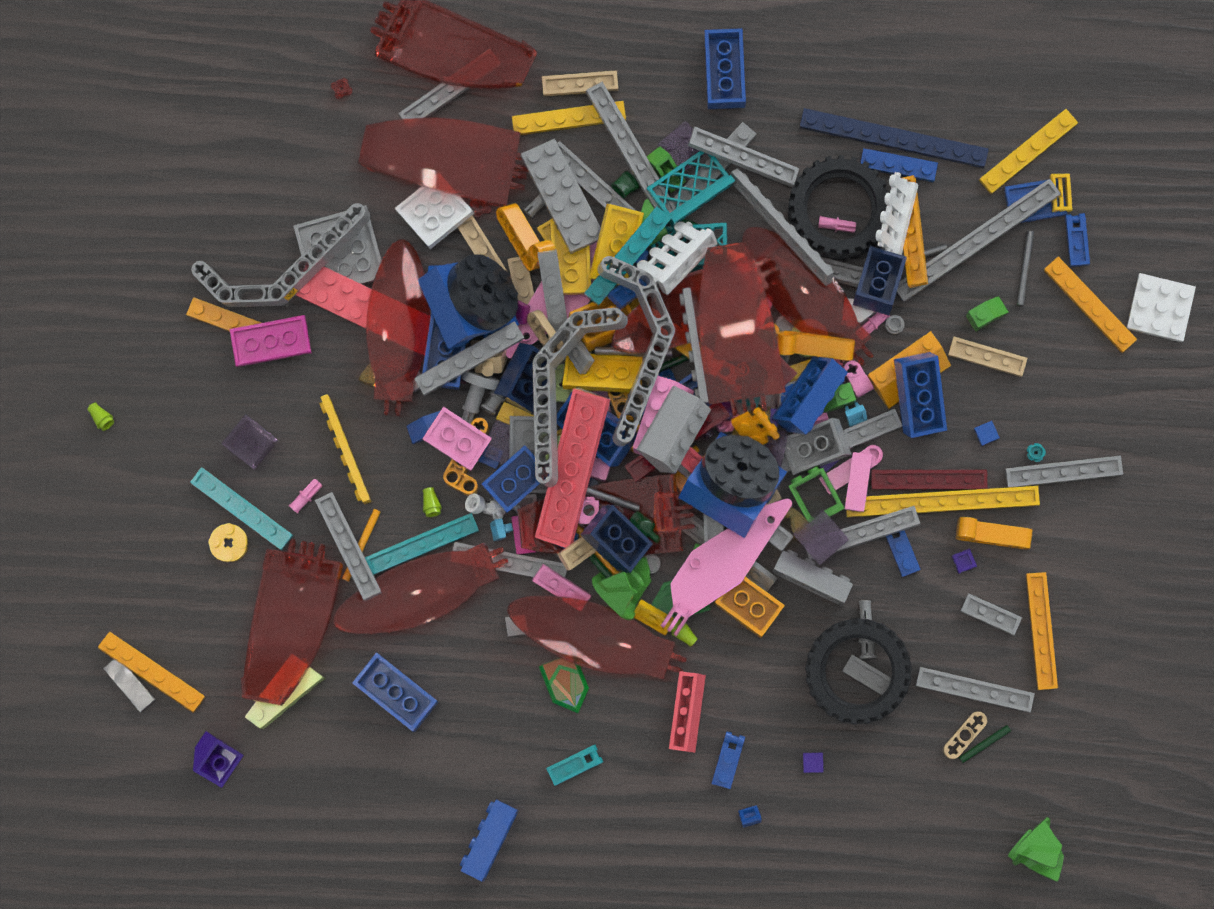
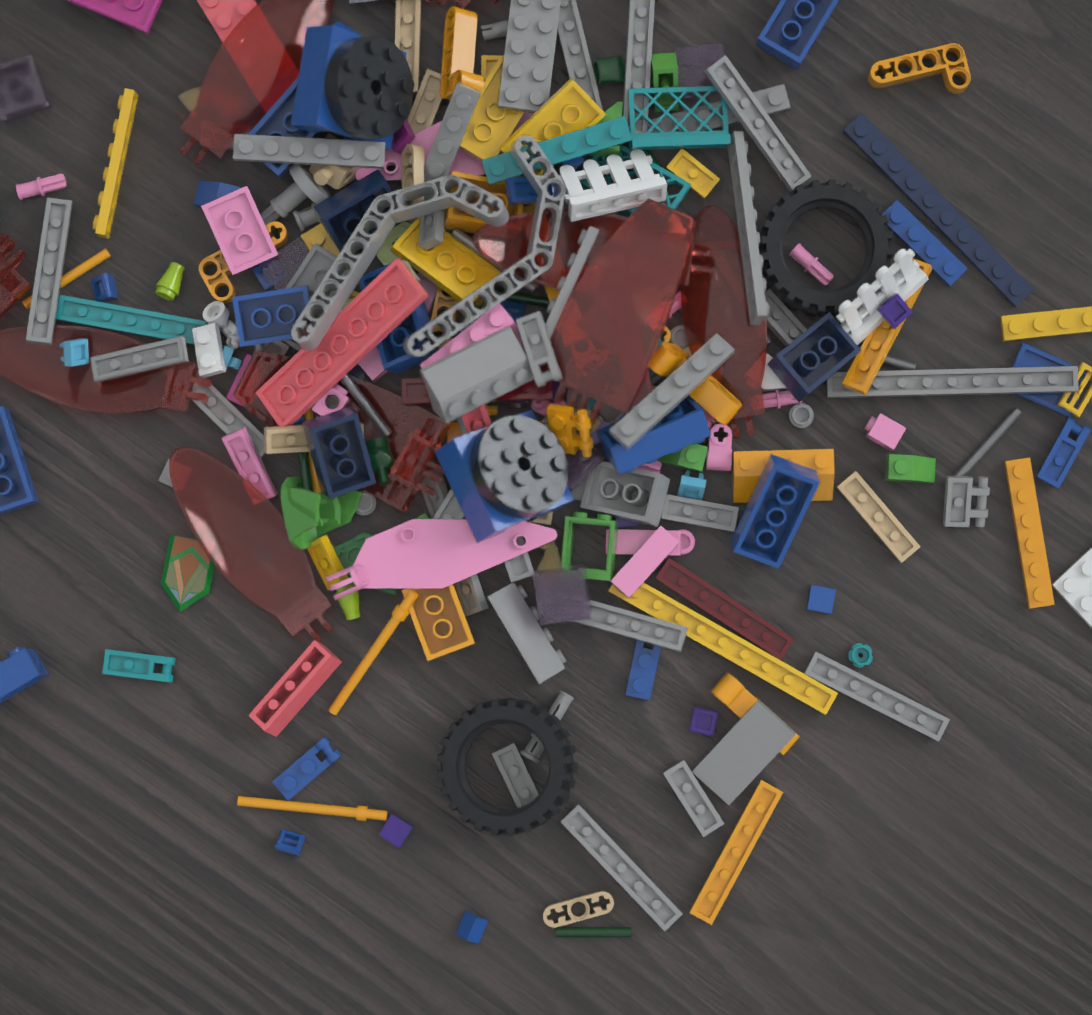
camera: 25 degrees right, 5 degrees up
(389, 535) = (104, 287): none -> blue slope
(399, 587) = (75, 352): none -> medium azure tile
(445, 564) = (139, 359): none -> light grey tile
(486, 529) = (209, 350): none -> white plate
(702, 387) = (538, 348): none -> light grey plate
(722, 214) = (695, 173): none -> yellow plate
(724, 618) = (399, 614): none -> light orange bar
(783, 766) = (361, 813): none -> light orange bar
(805, 360) = (672, 391): none -> light grey plate
(822, 58) = (918, 70): none -> light orange beam
(904, 793) = (471, 927): none -> blue slope
(910, 218) = (894, 310): none -> dark purple tile
(955, 300) = (884, 431): none -> bright pink brick
(1003, 562) = (743, 752): none -> light grey tile
(1032, 313) = (958, 501): none -> light grey plate

